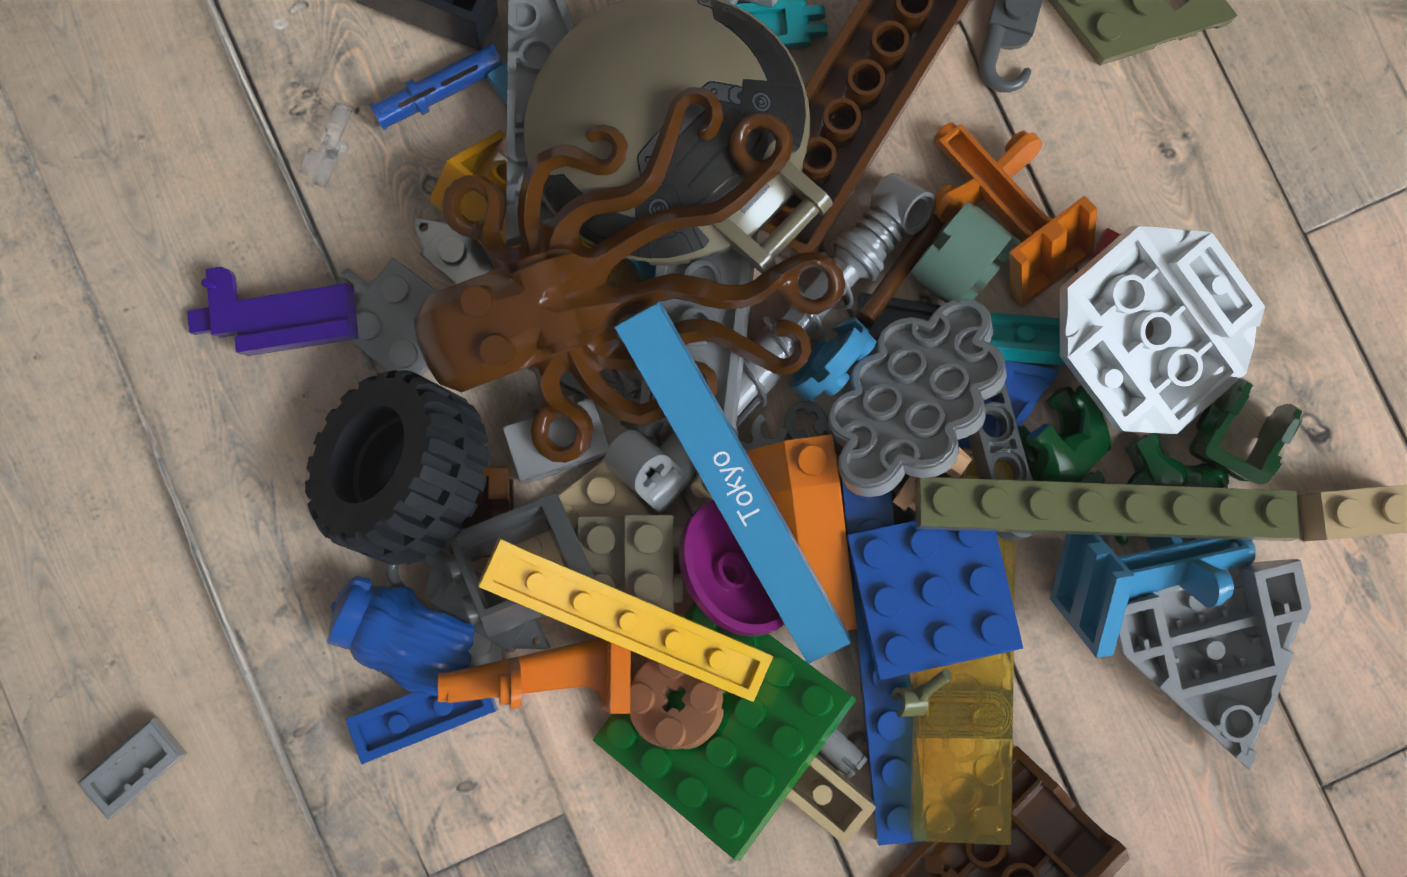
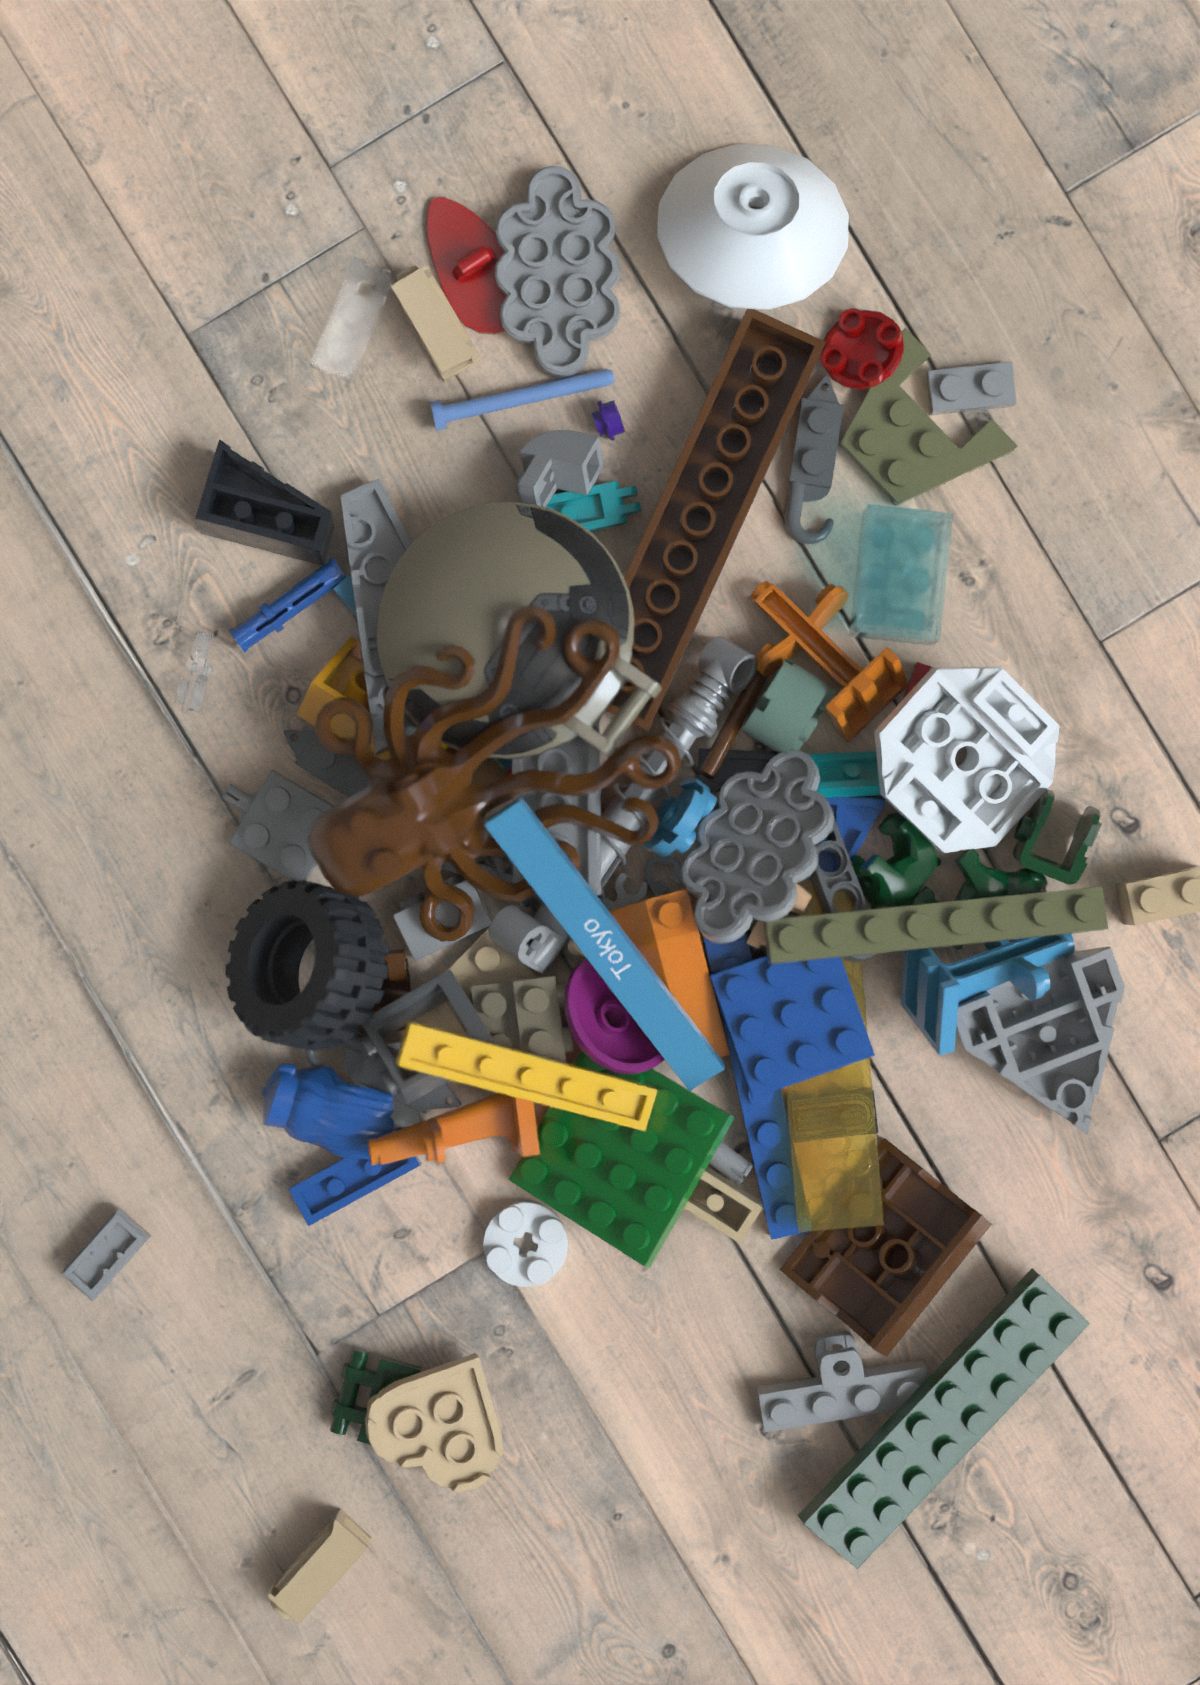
camera: 10 degrees left, 5 degrees up
(275, 320) = (174, 841): dark purple piece -> none
(612, 841) = (504, 1255): none -> white plate
(674, 728) = (576, 1161): nougat plate -> none
(916, 698) = (787, 1109): olive hand -> none
(1102, 129) = (901, 574): none -> clear light blue brick

